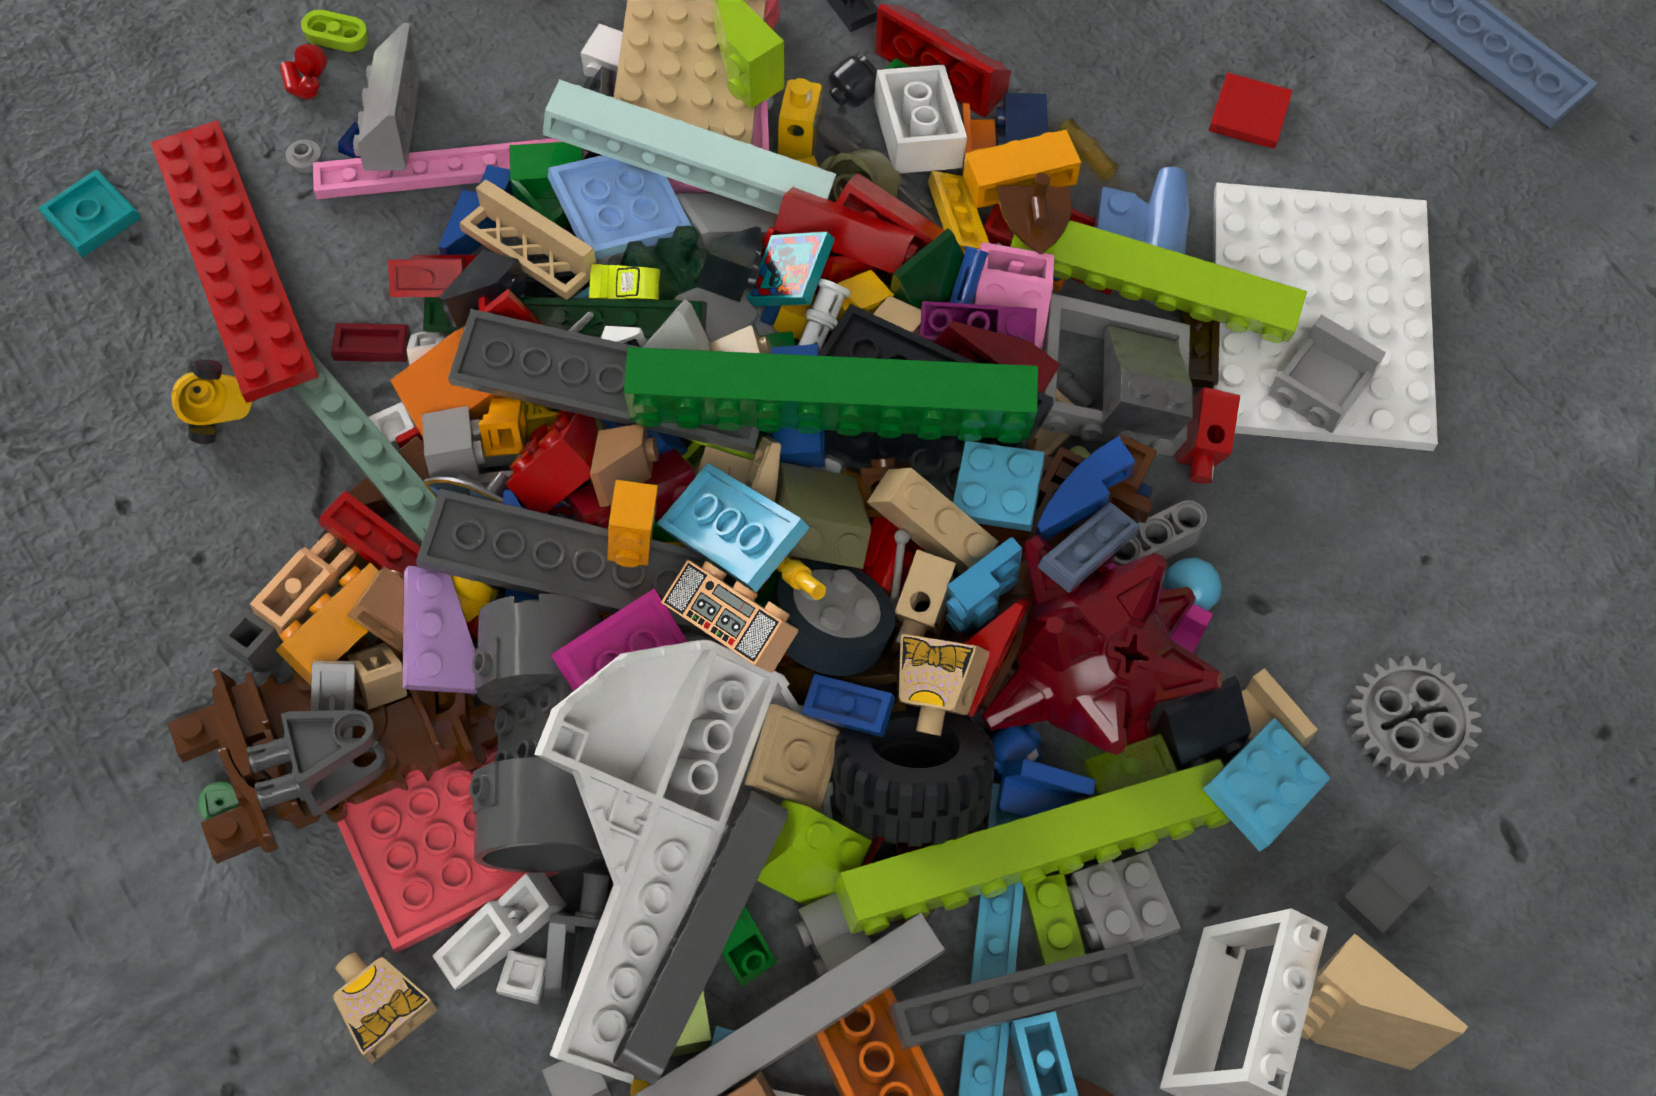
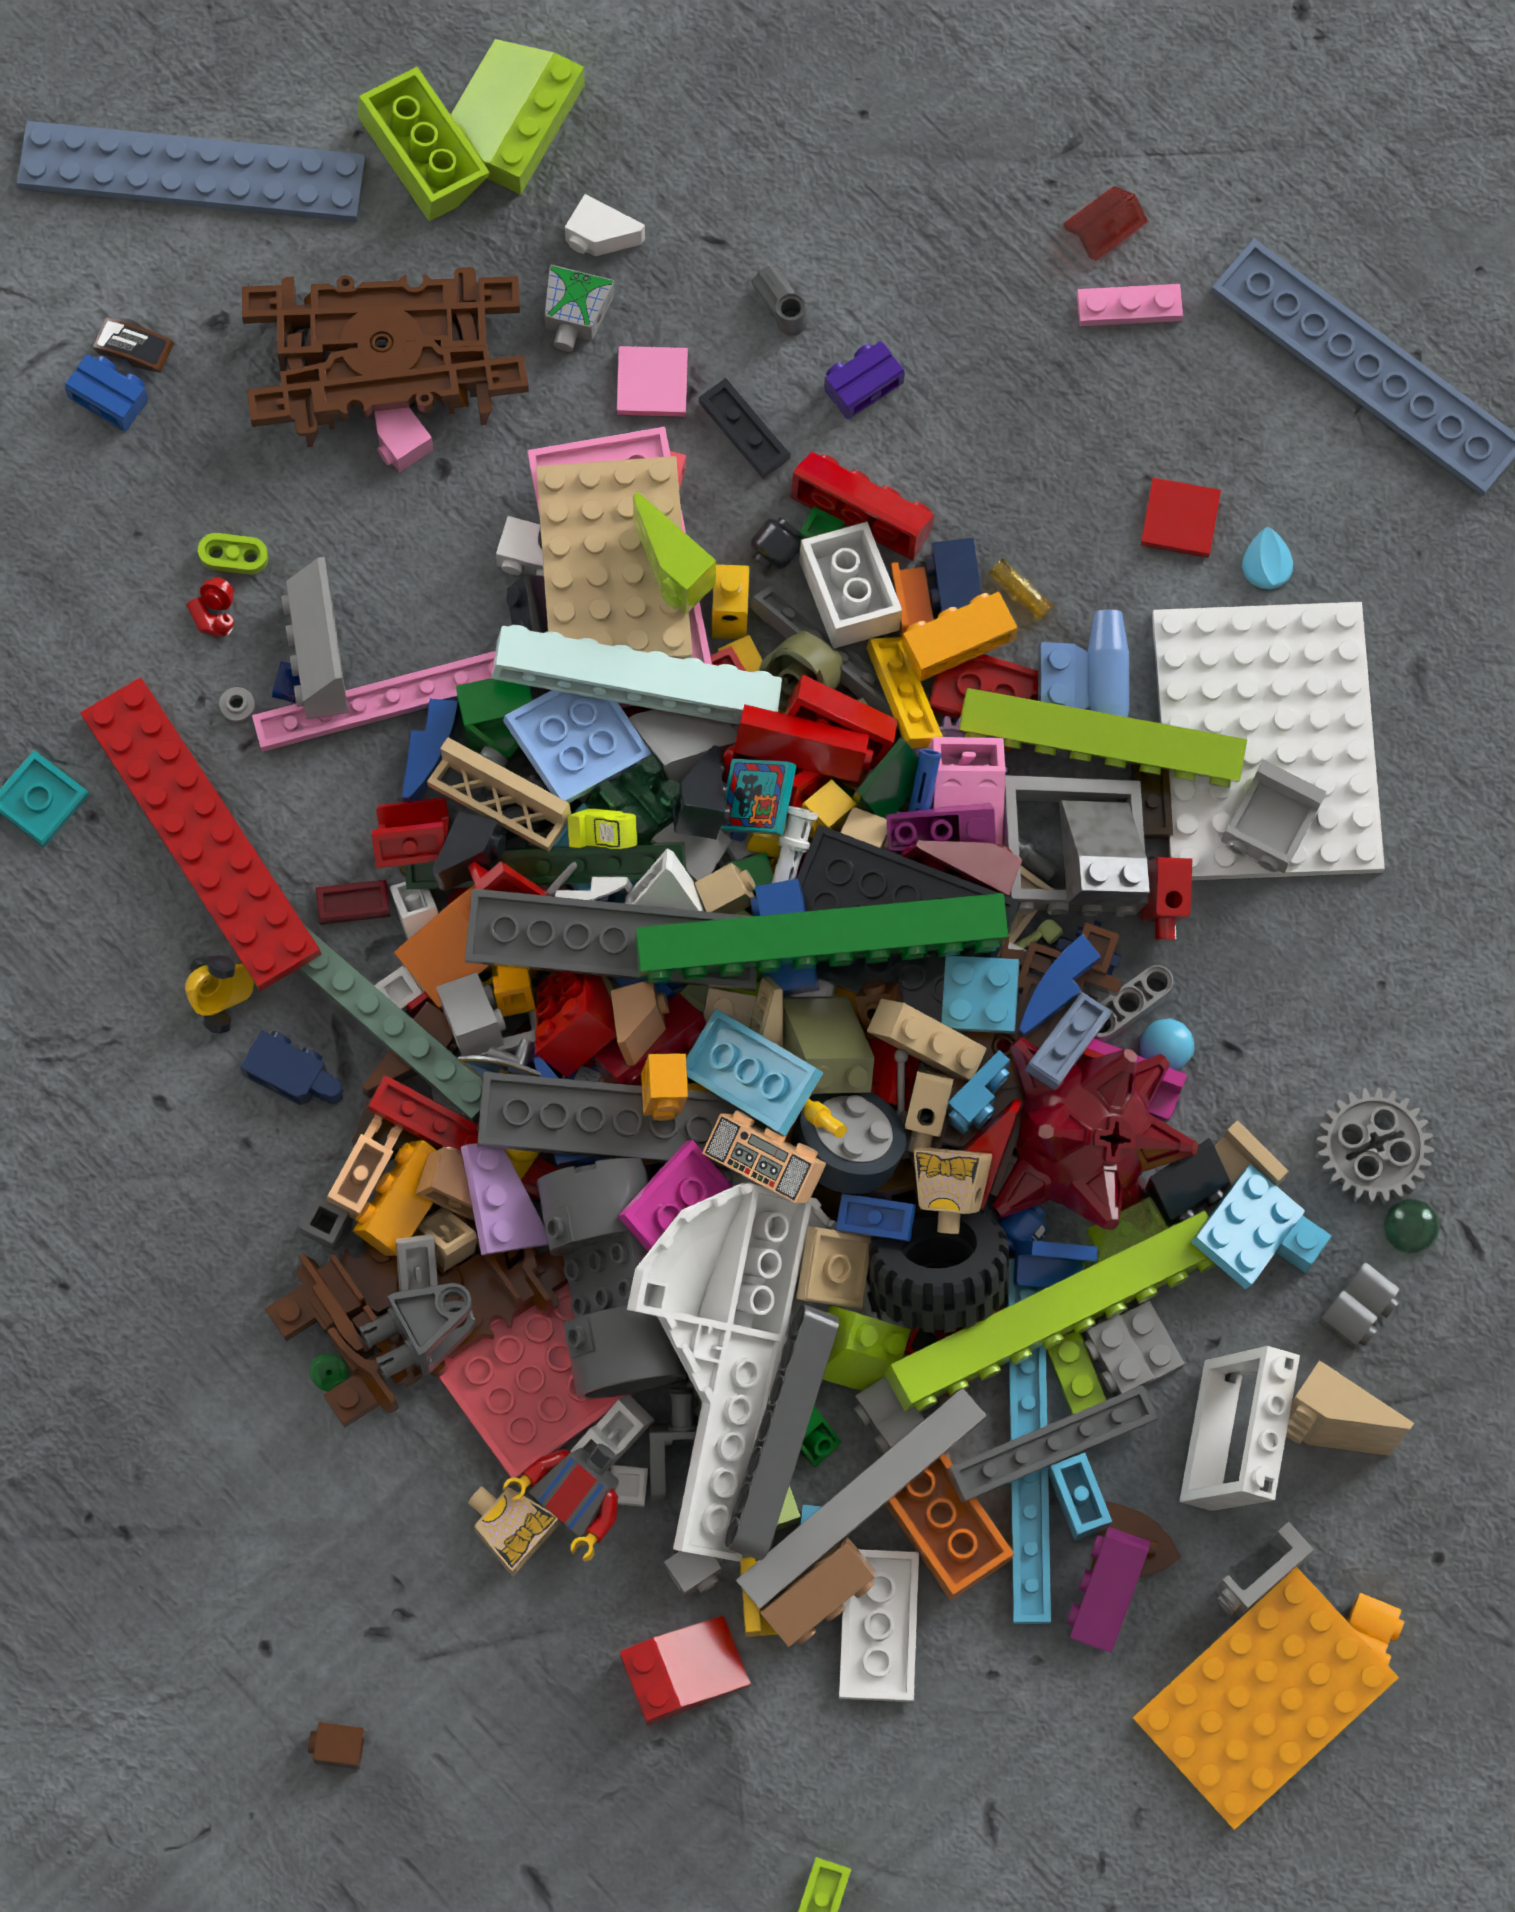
camera: 10 degrees left, 10 degrees up
(261, 488) = (290, 1071): none -> dark blue hinge
(456, 972) = (576, 1491): none -> torso
(1036, 212) = (980, 694): reddish brown shield -> none
(1328, 812) = (1303, 1244): none -> medium azure brick
(1333, 156) = (1267, 561): none -> medium azure piece
(1450, 811) = (1412, 1226): none -> clear green hair

